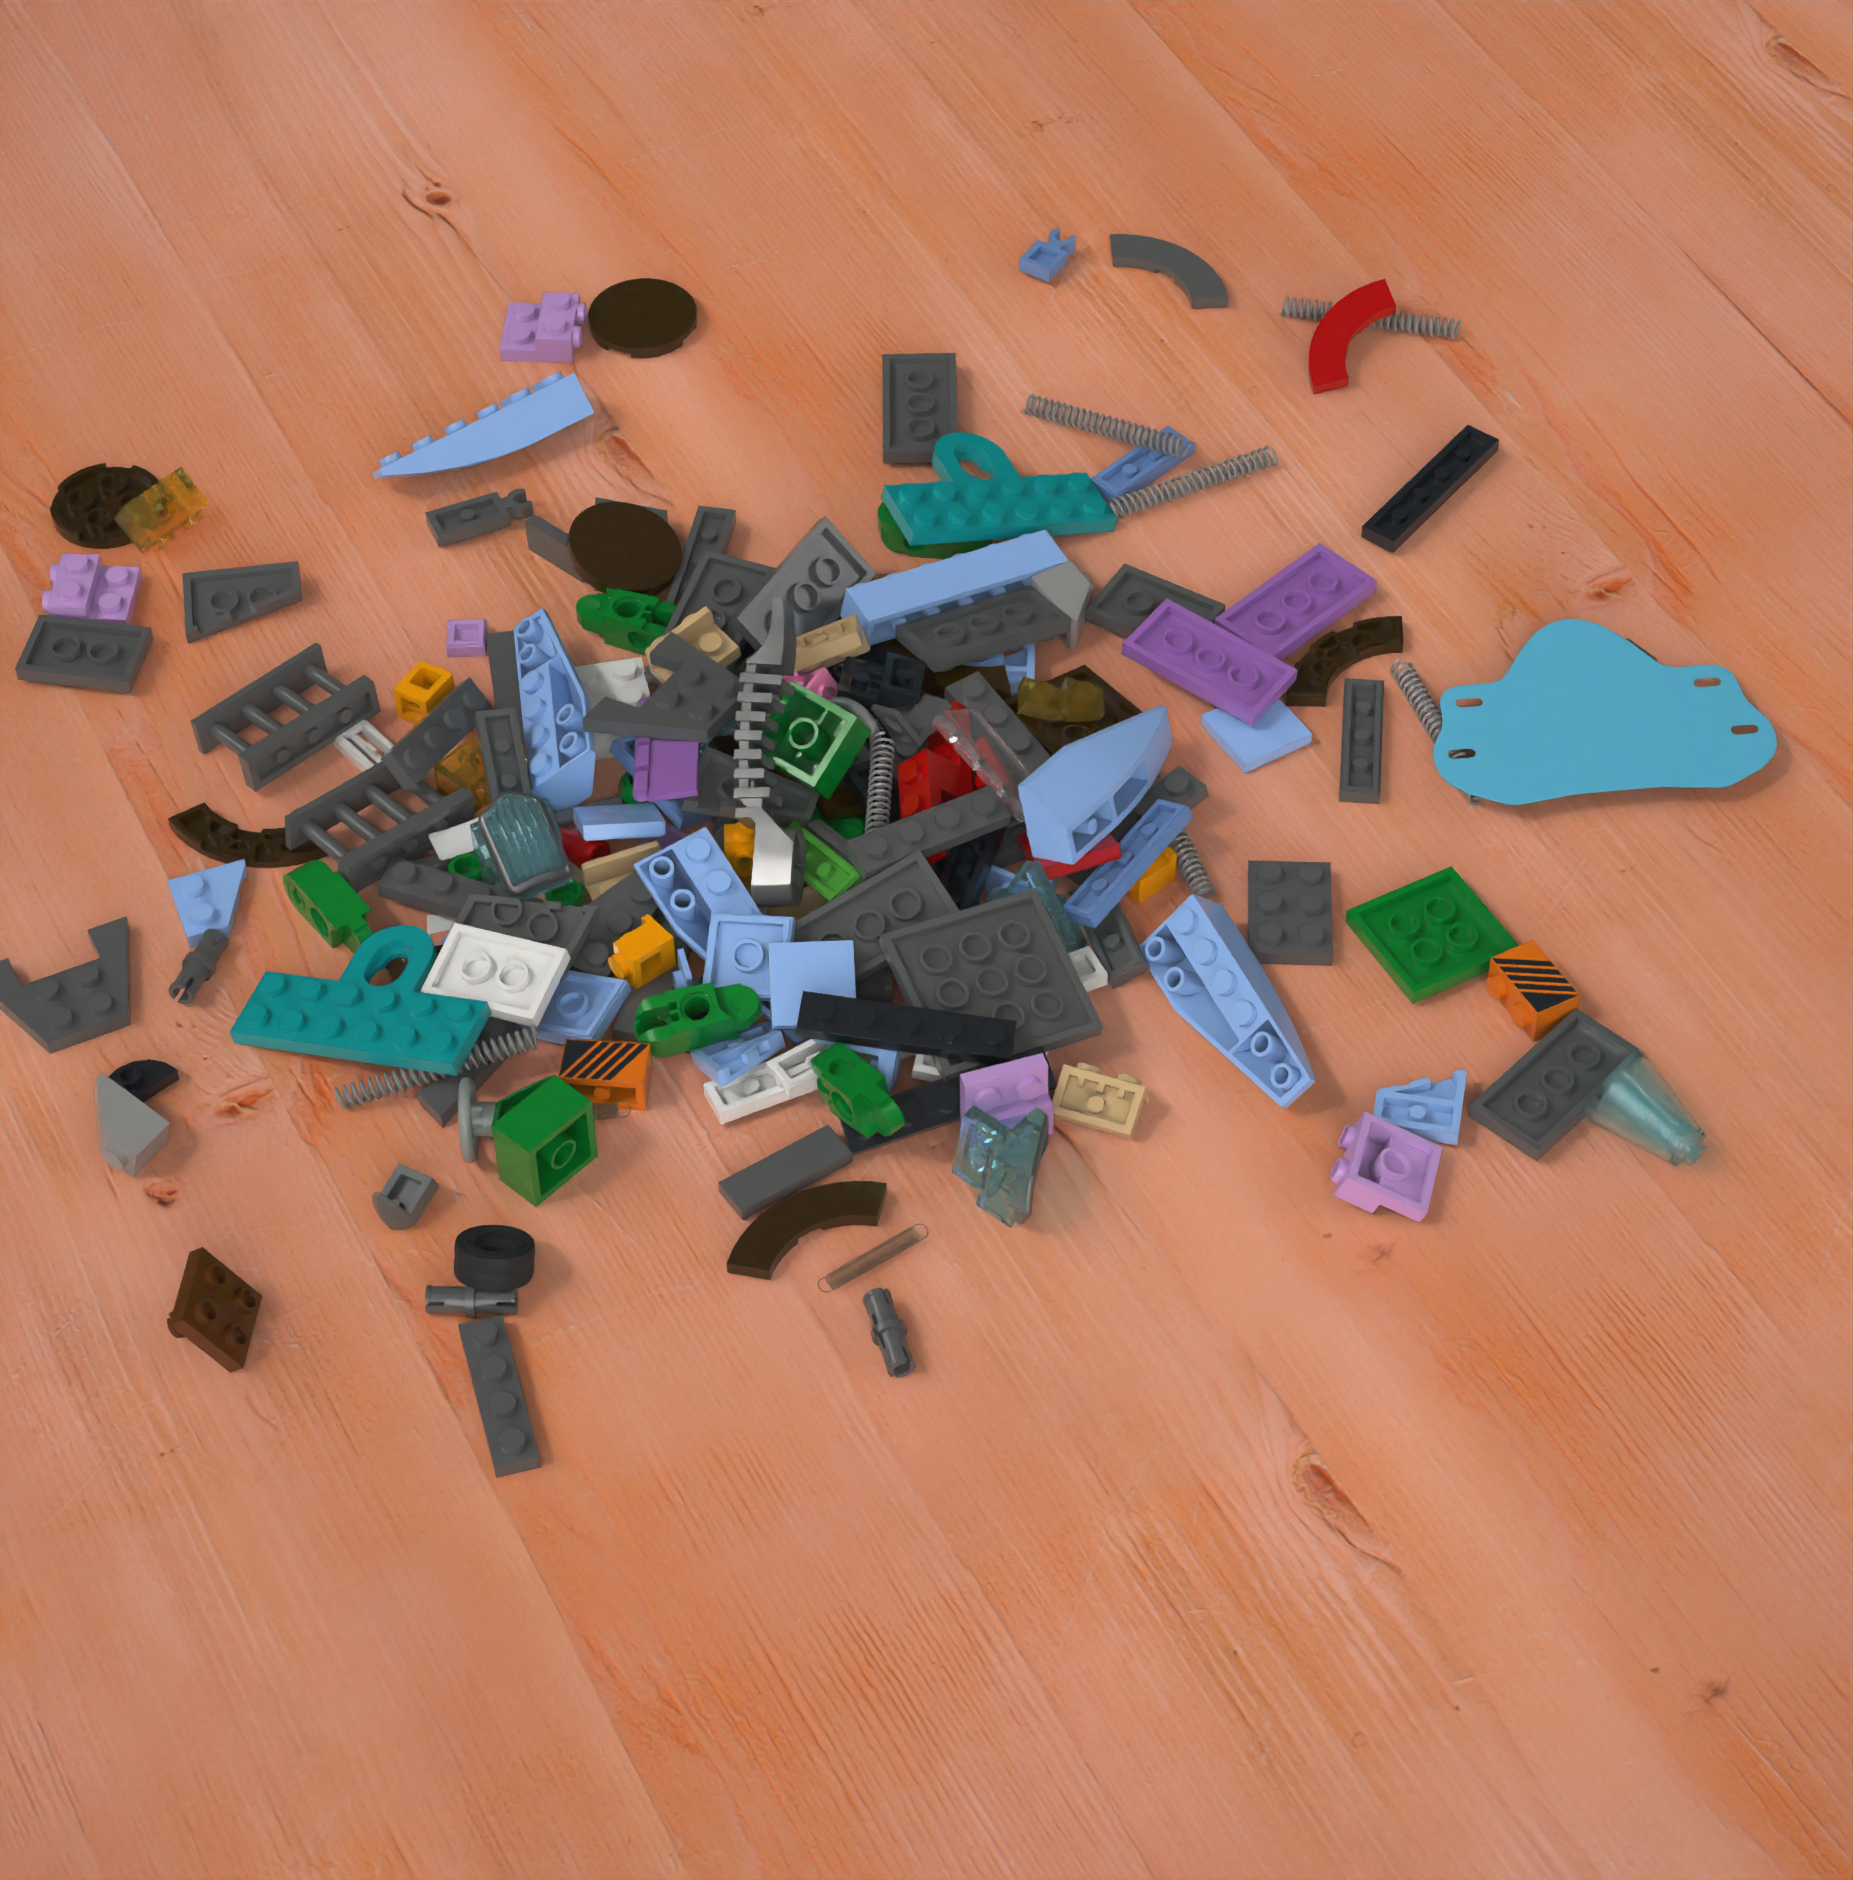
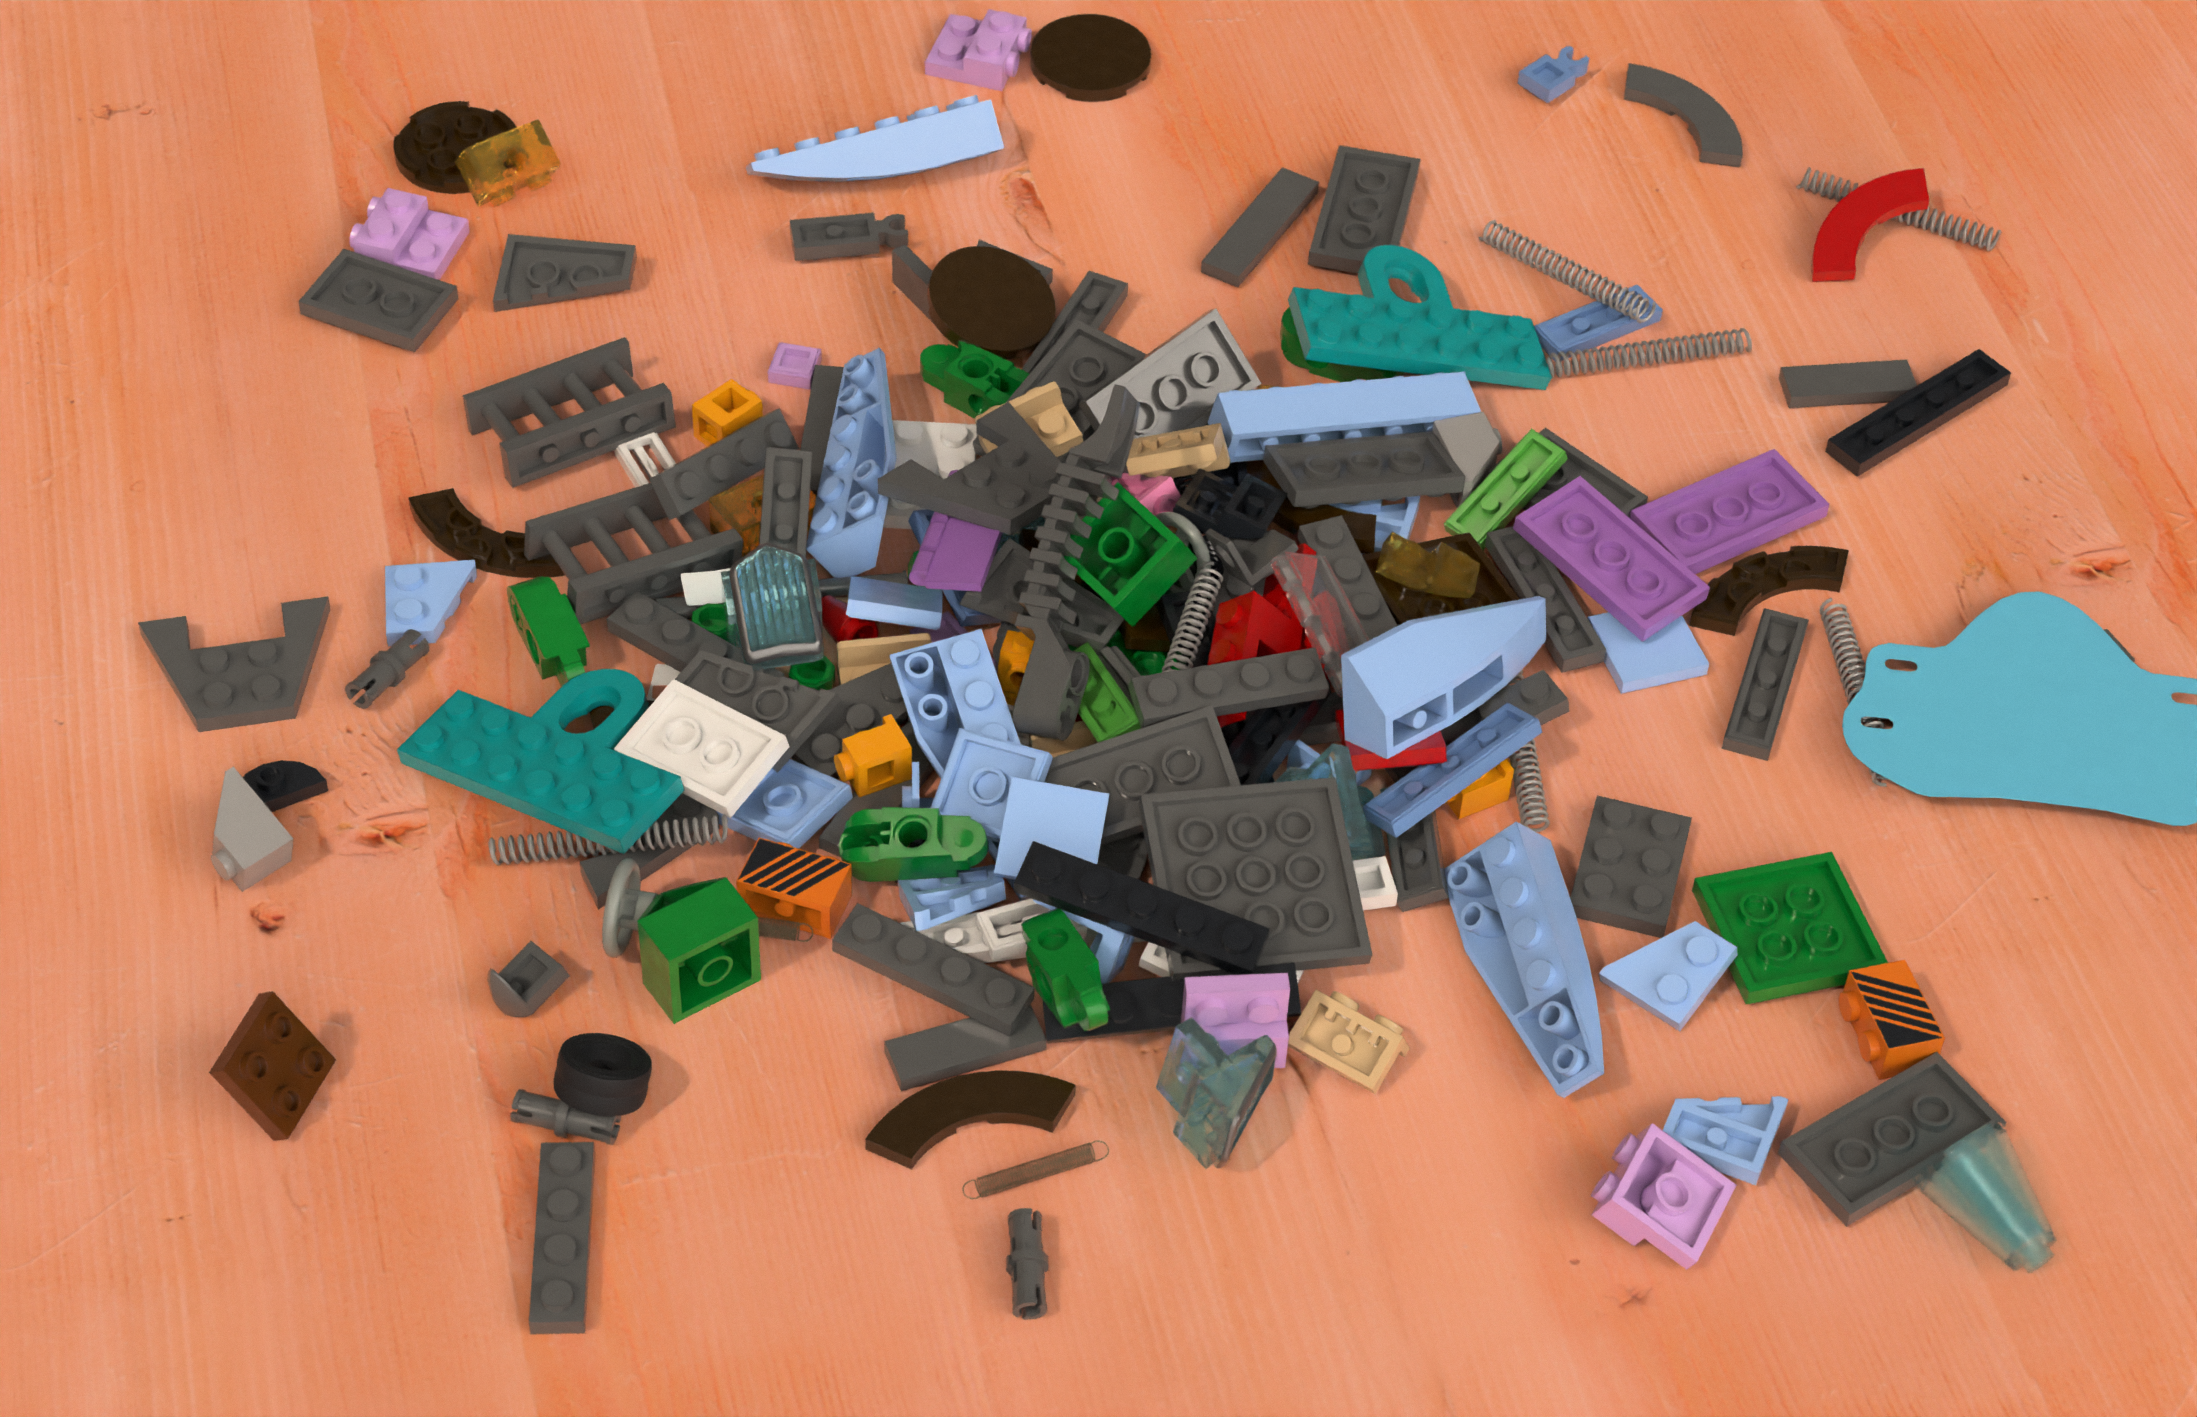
camera: 10 degrees right, 0 degrees up
(743, 1115) = (933, 969): none -> dark grey plate
(832, 439) = (1259, 227): none -> dark grey tile
(1107, 621) = (1507, 488): none -> bright green tile
(1146, 689) = (1530, 574): none -> dark grey plate
(1347, 990) = (1672, 972): none -> light blue wing
(1364, 475) = (1846, 383): none -> dark grey tile

